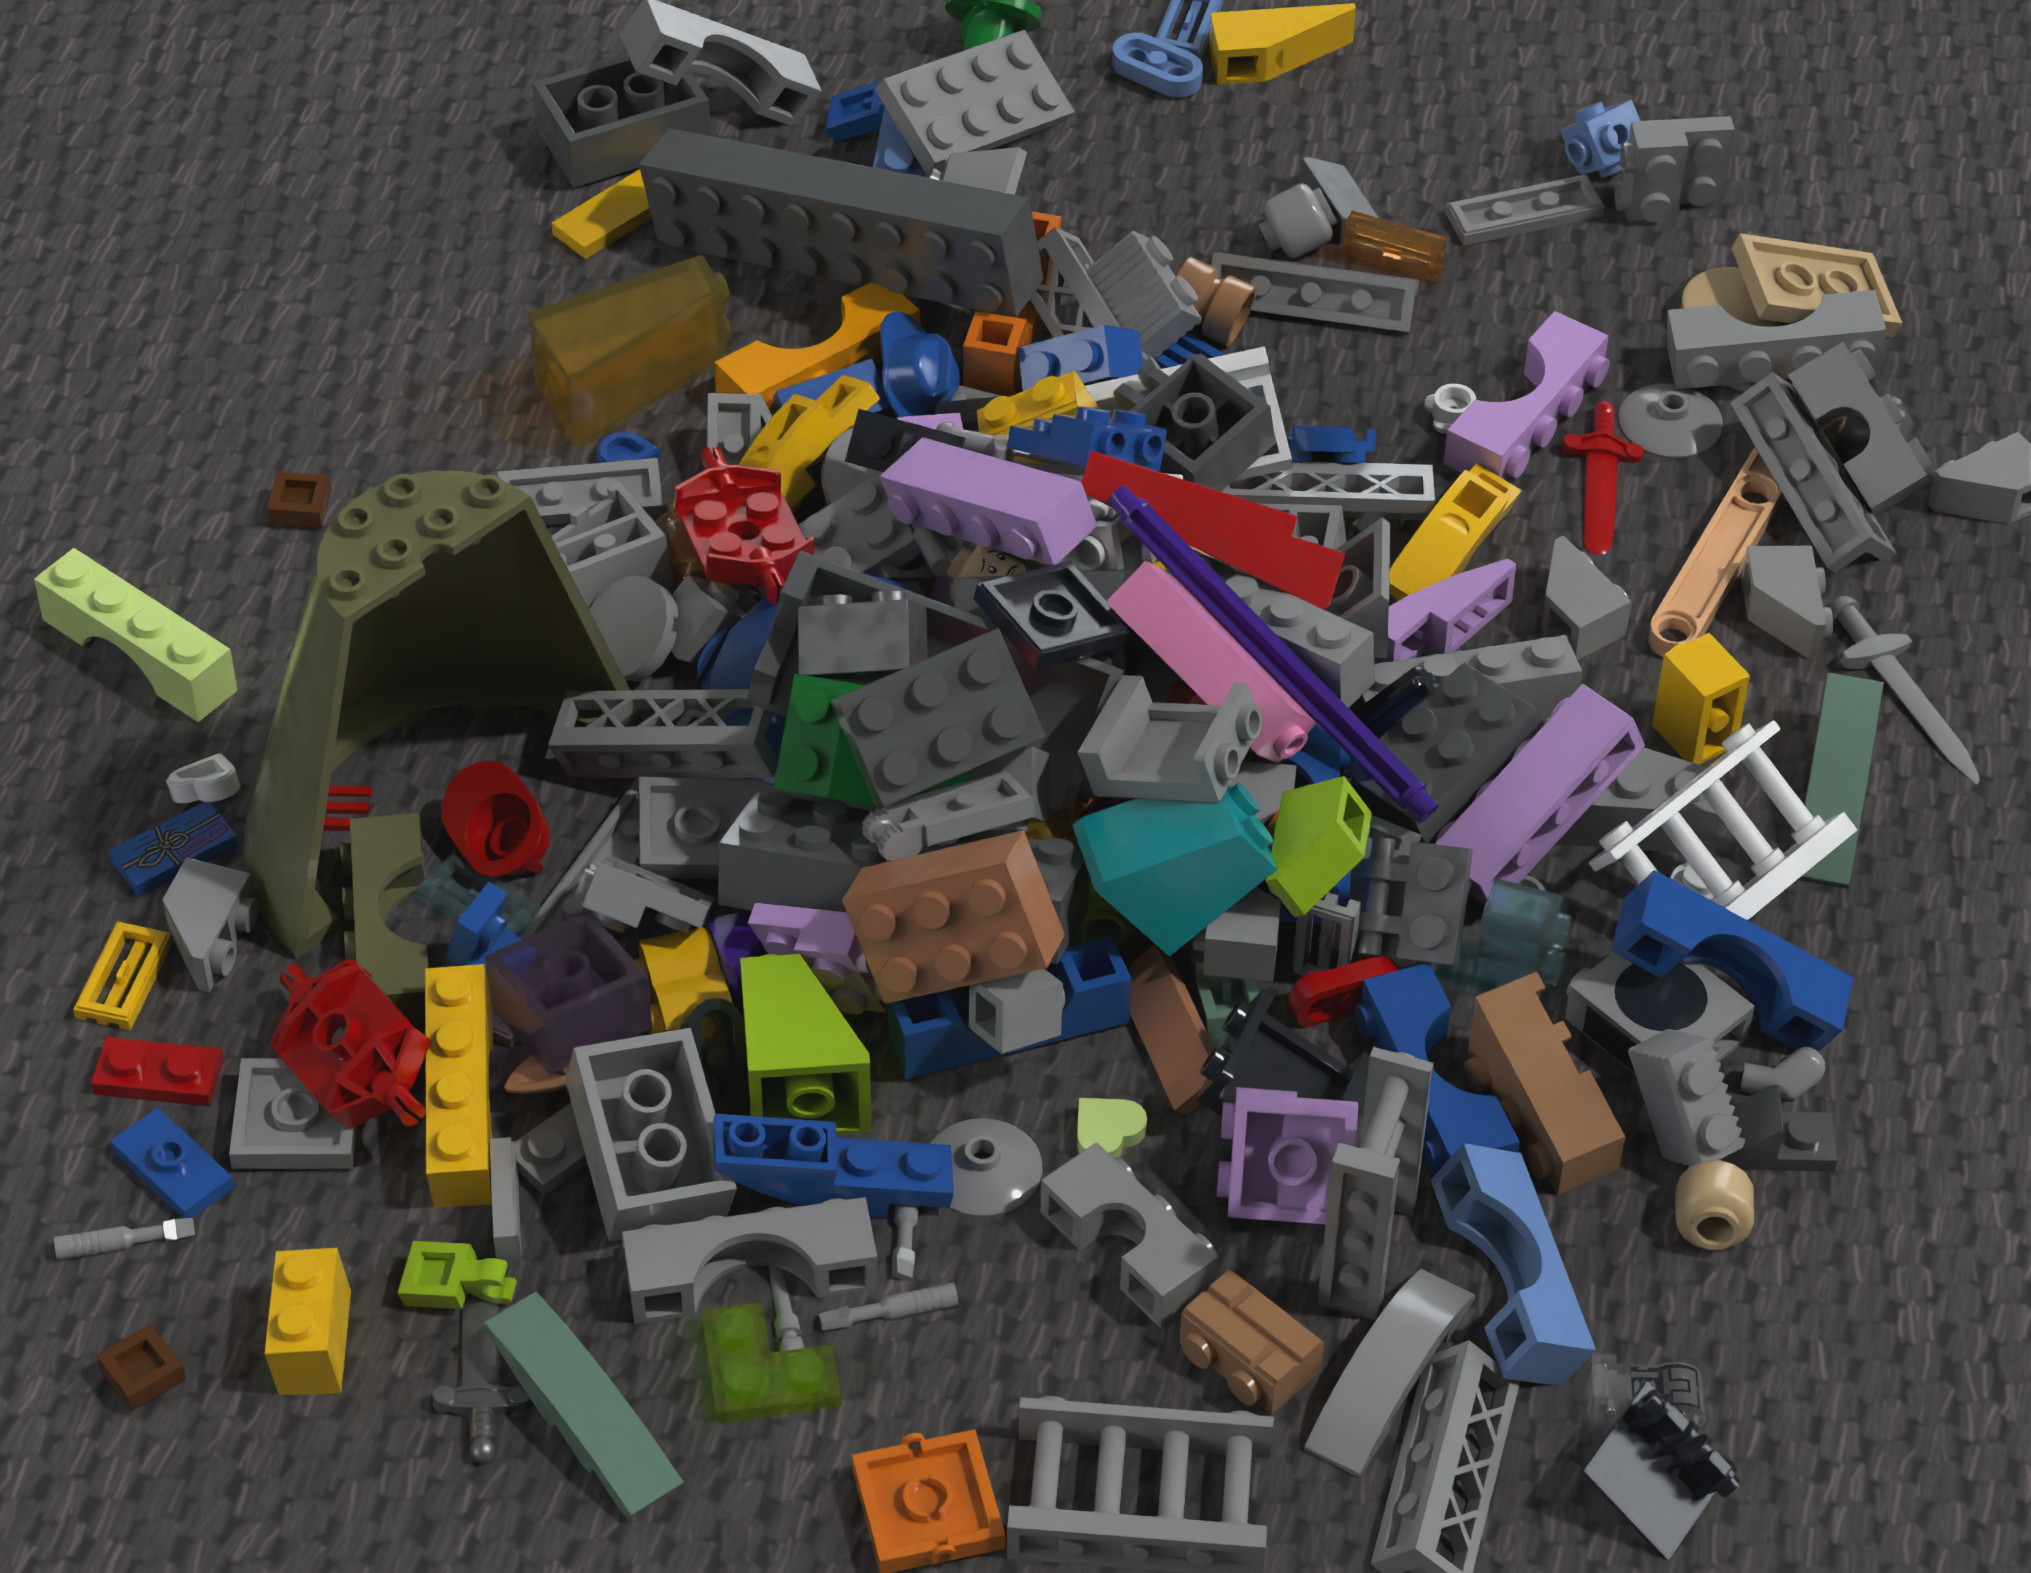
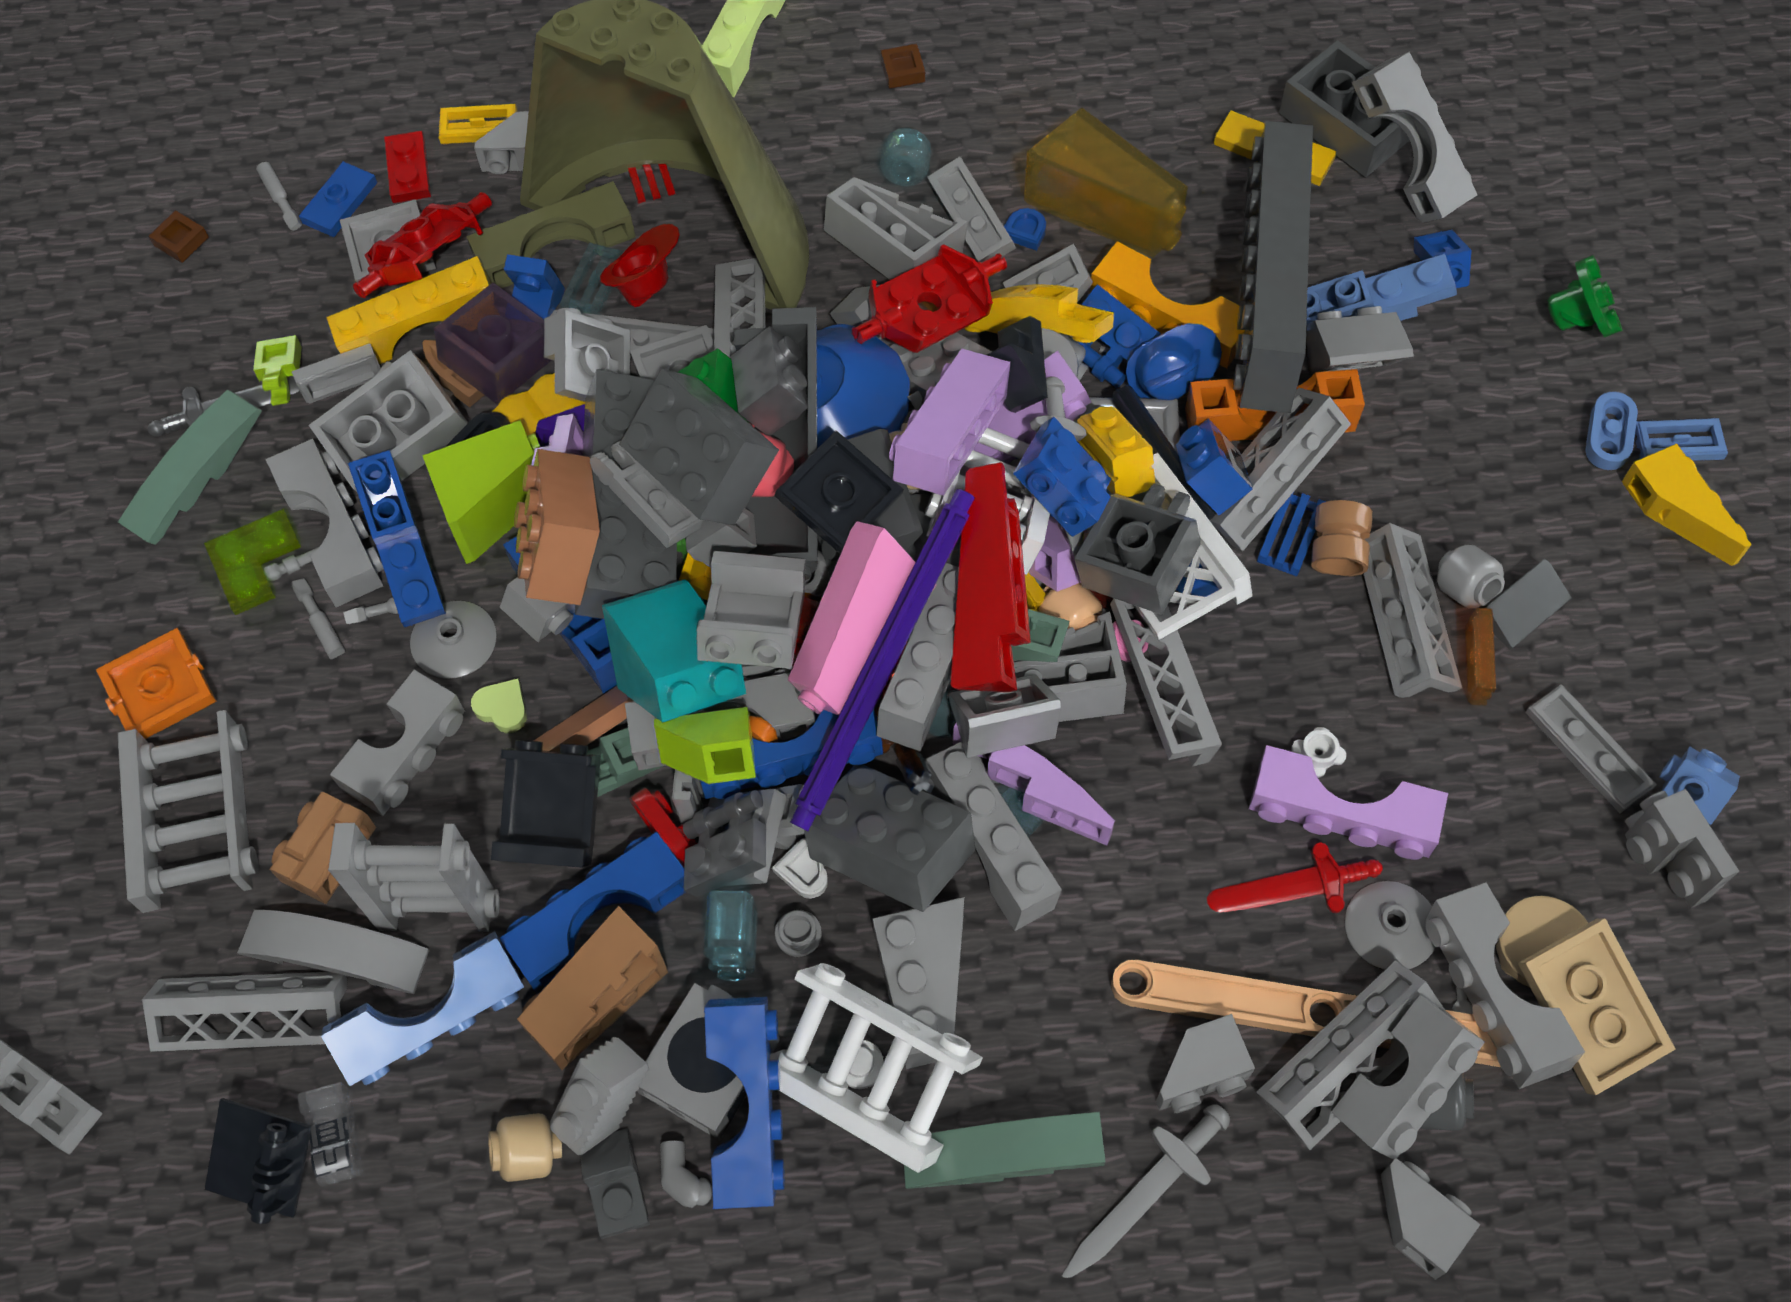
camera: 75 degrees right, 15 degrees up
(308, 1322) = (218, 302): yellow brick -> none
(636, 624) = (844, 275): light grey tile -> none
(974, 100) = (1476, 313): light grey plate -> none
(1145, 291) = (1305, 484): light grey brick -> none
(1282, 1154) = (474, 806): lavender plate -> none
(1333, 439) = (1218, 660): blue plate -> none
(1452, 531) = (1159, 780): yellow slope -> none
(1544, 789) = (859, 906): lavender brick -> none
(1582, 602) = (1128, 894): light grey slope -> none
(1699, 698) = (1034, 1012): yellow brick -> none

